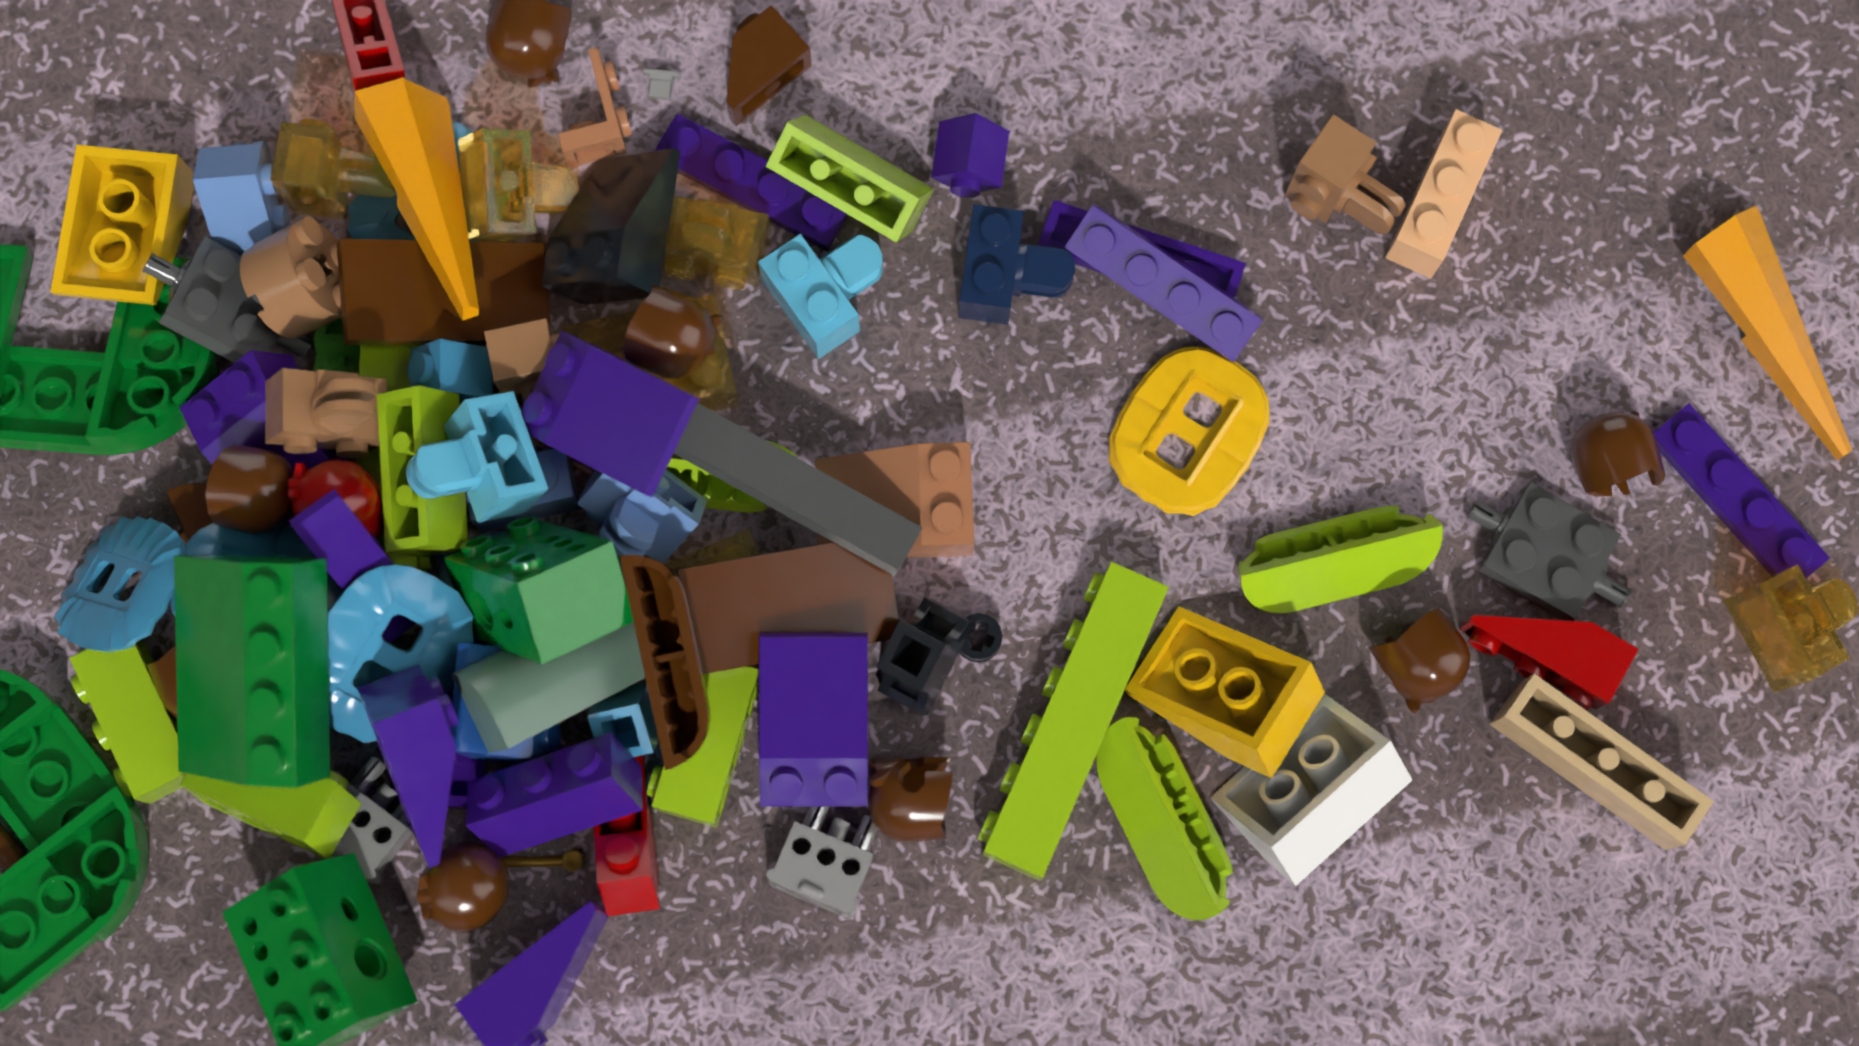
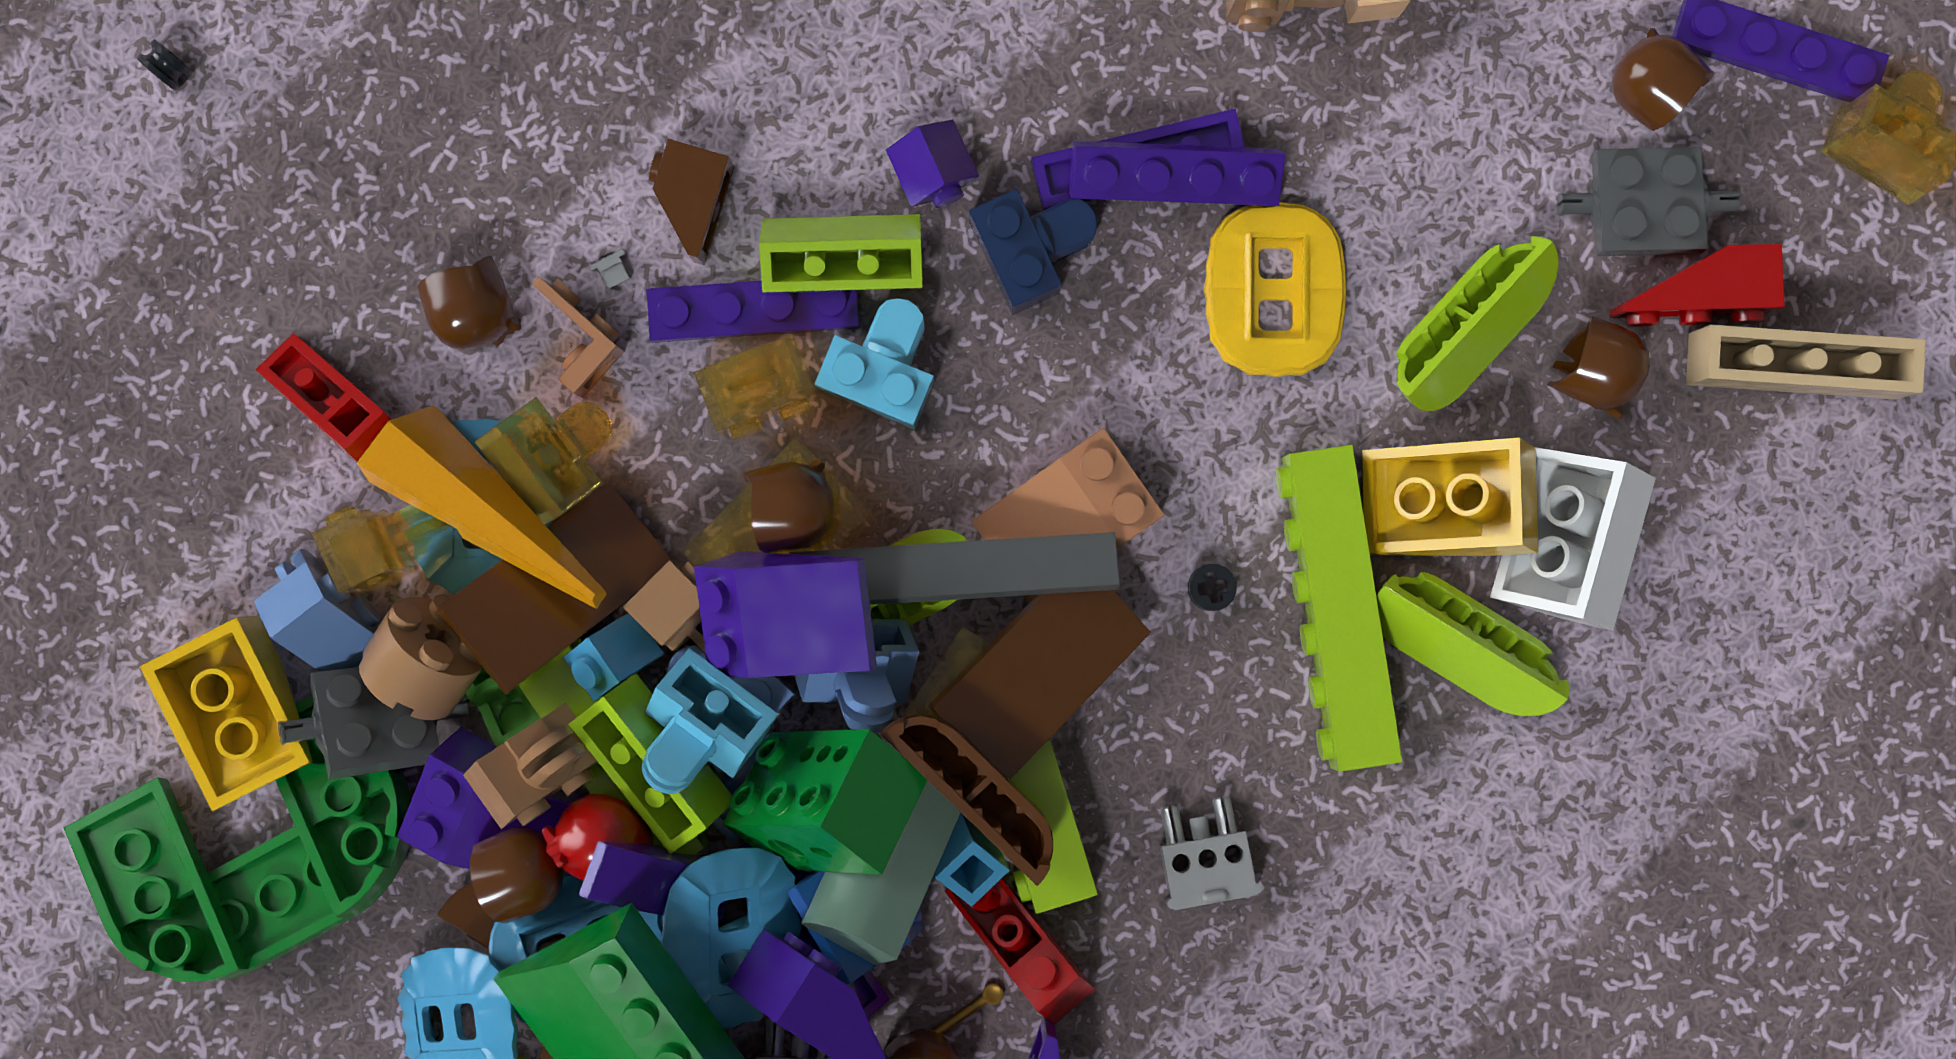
camera: 30 degrees left, 10 degrees up
(554, 795) = (950, 959): dark purple brick -> none
(614, 230) = (666, 431): black slope -> none
(813, 719) = (1127, 754): dark purple slope -> none
(910, 797) = (1246, 766): reddish brown helmet -> none
(922, 655) = (1178, 634): black brick -> none

